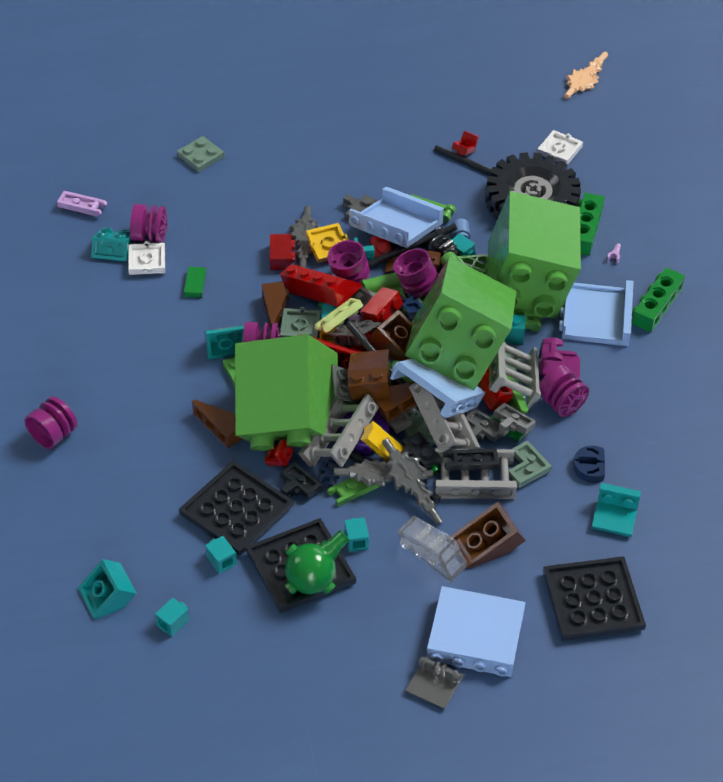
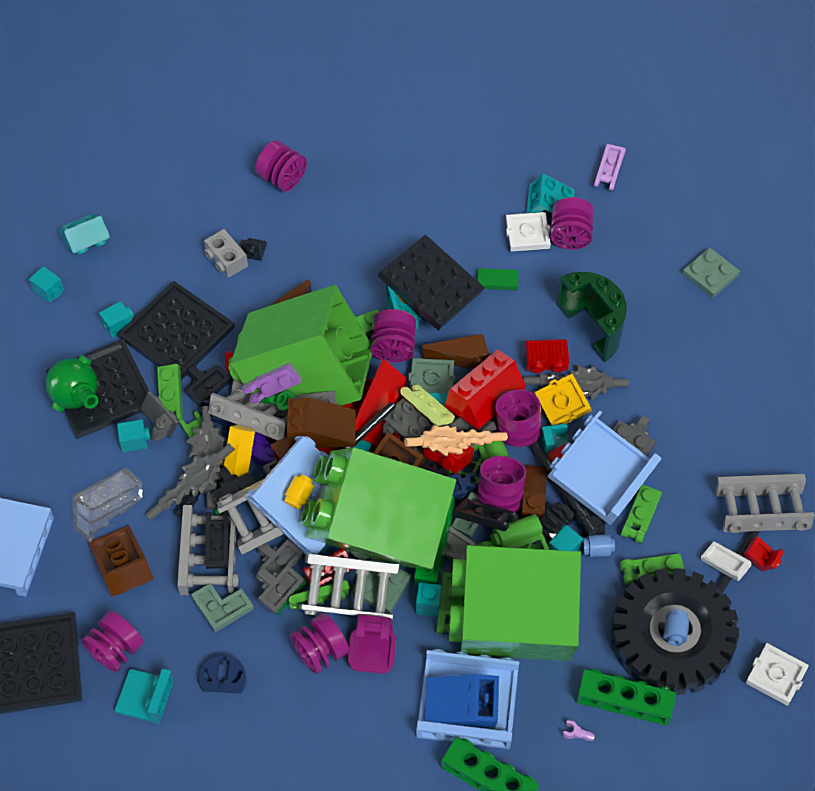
camera: 90 degrees right, 10 degrees up
(148, 449) = (253, 248): none -> black bracket
(148, 470) = (225, 253): none -> light grey brick
(206, 311) = (431, 282): none -> black plate
(246, 204) = (602, 302): none -> dark green cylinder
(308, 507) = (170, 388): none -> bright green hinge
(324, 406) = (272, 382): none -> medium lavender hinge
(341, 398) = (281, 400): none -> green plate
(346, 503) = (164, 420): none -> dark grey hinge
(378, 296) = (448, 440): none -> light nougat piece
(408, 135) = (764, 485): none -> light grey fence
(446, 373) = (299, 491): none -> yellow brick
(470, 164) = (726, 561): none -> white tile
(477, 205) = (649, 566): none -> bright green plate
(540, 179) = (676, 627): none -> medium blue brick
(573, 530) = (116, 637): none -> magenta wheel
(604, 305) = (463, 700): none -> blue slope

